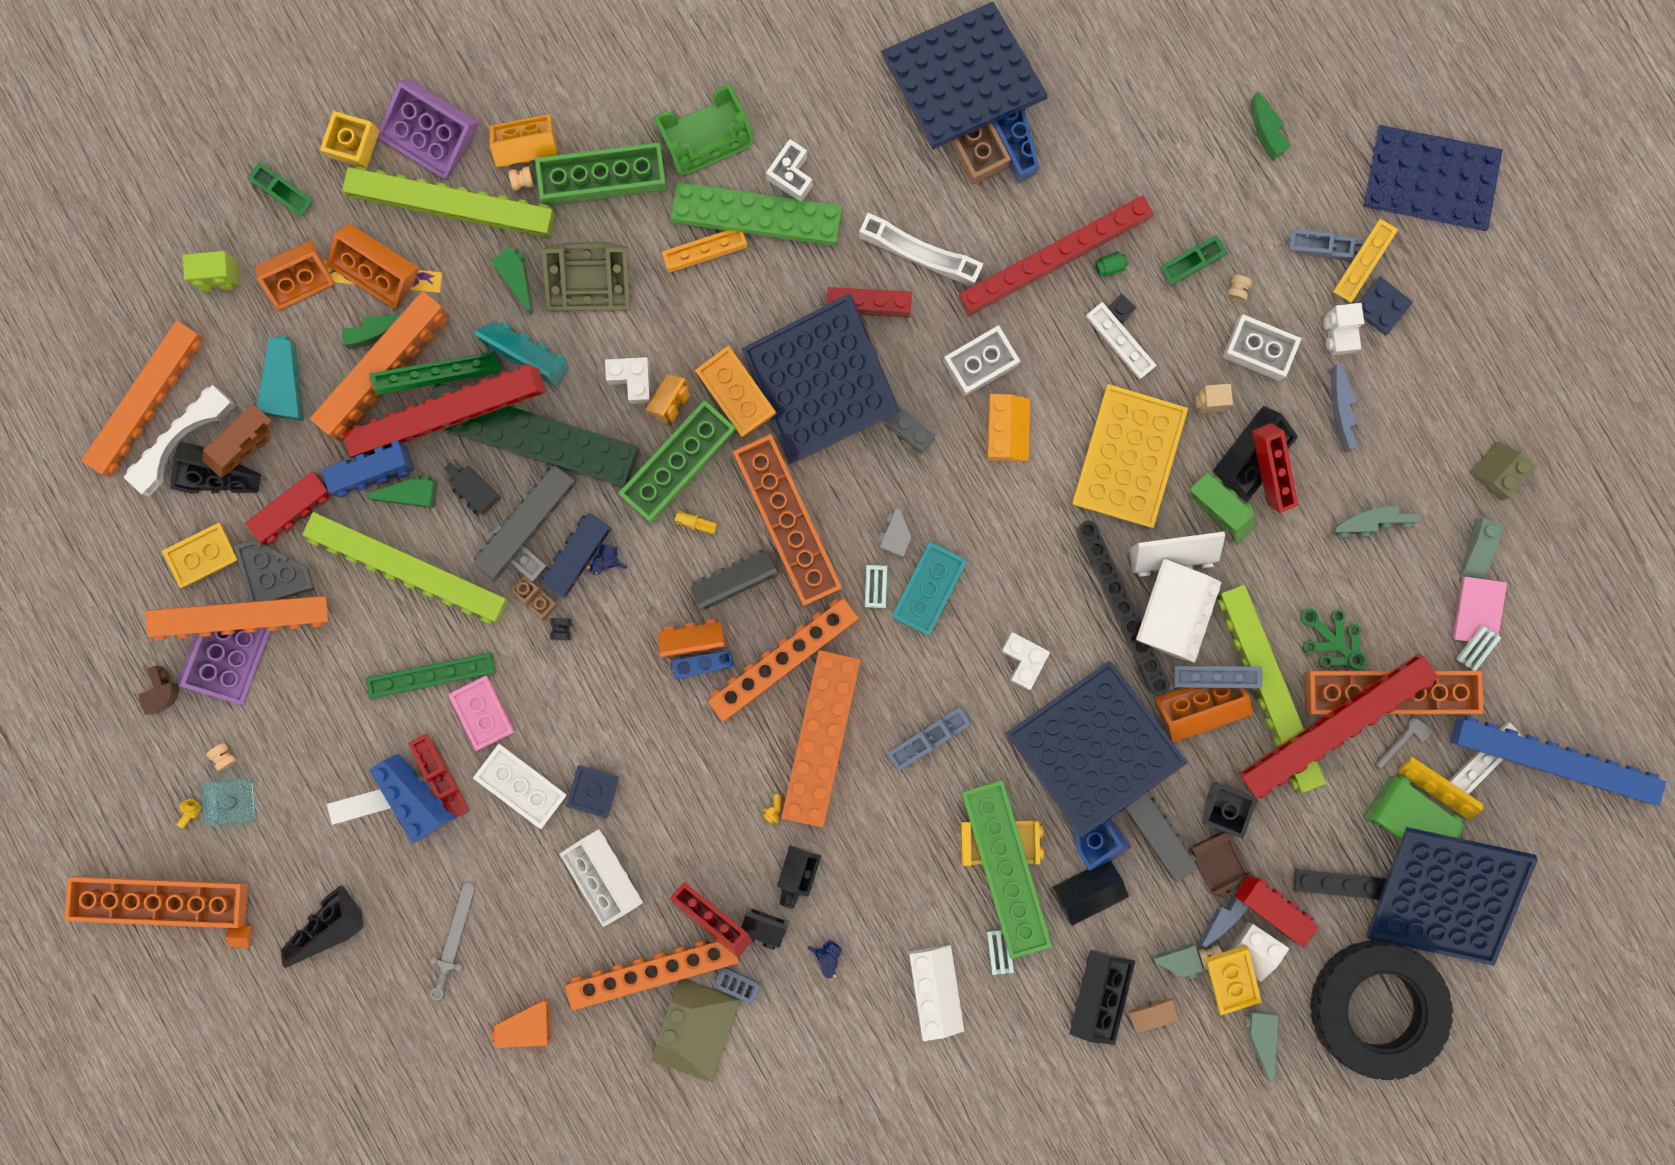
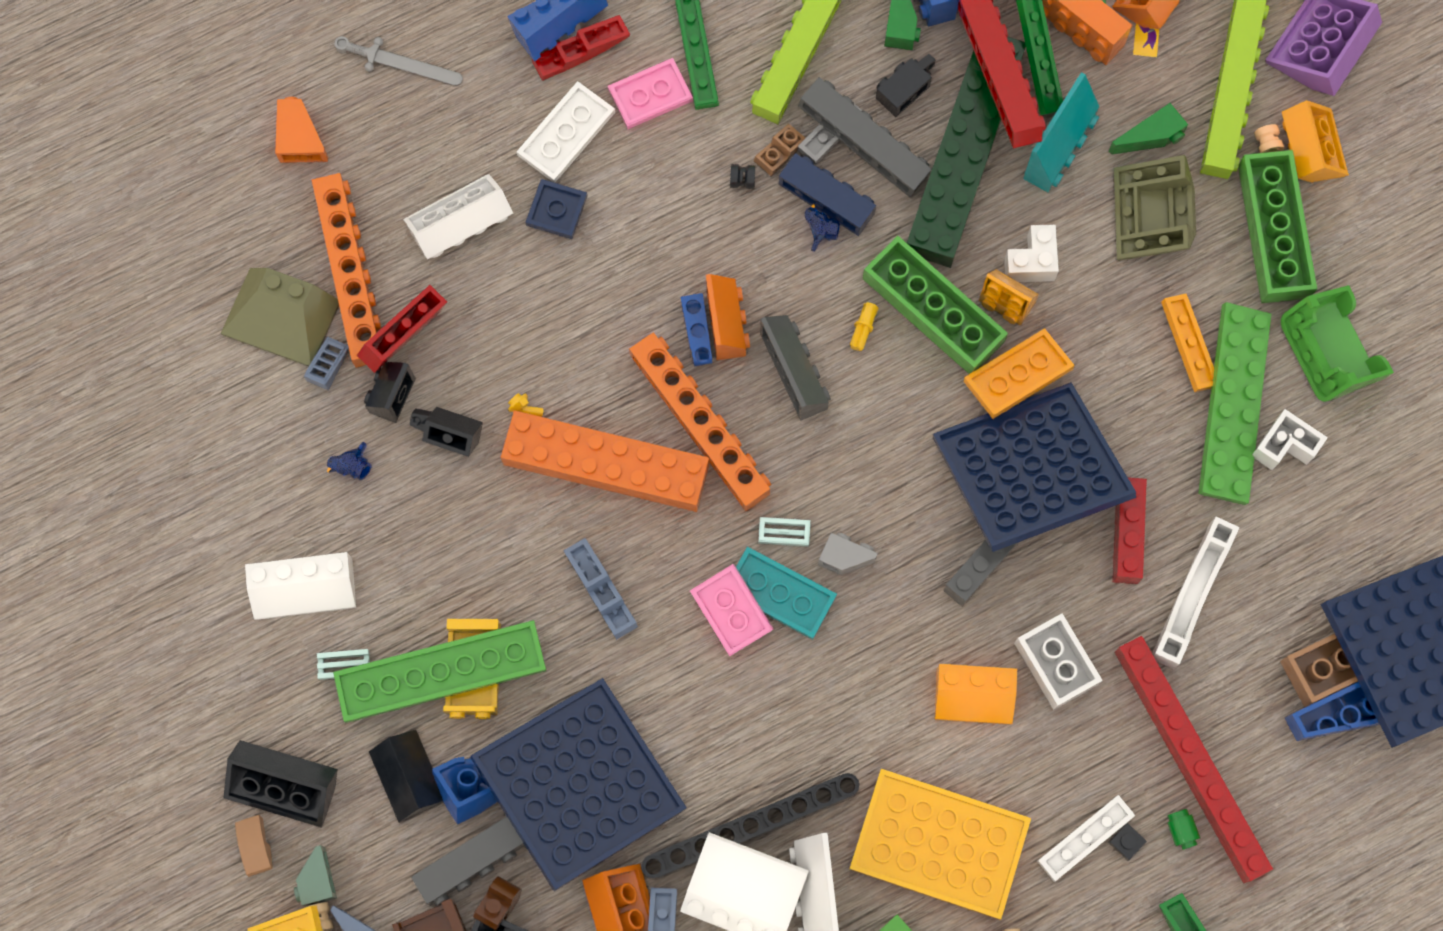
camera: 95 degrees right, 10 degrees down
(787, 520) = (863, 427): orange brick -> none
(945, 628) = (731, 609): none -> bright pink tile
(1030, 659) = (691, 709): white brick -> none
(1196, 810) = (497, 902): none -> reddish brown brick

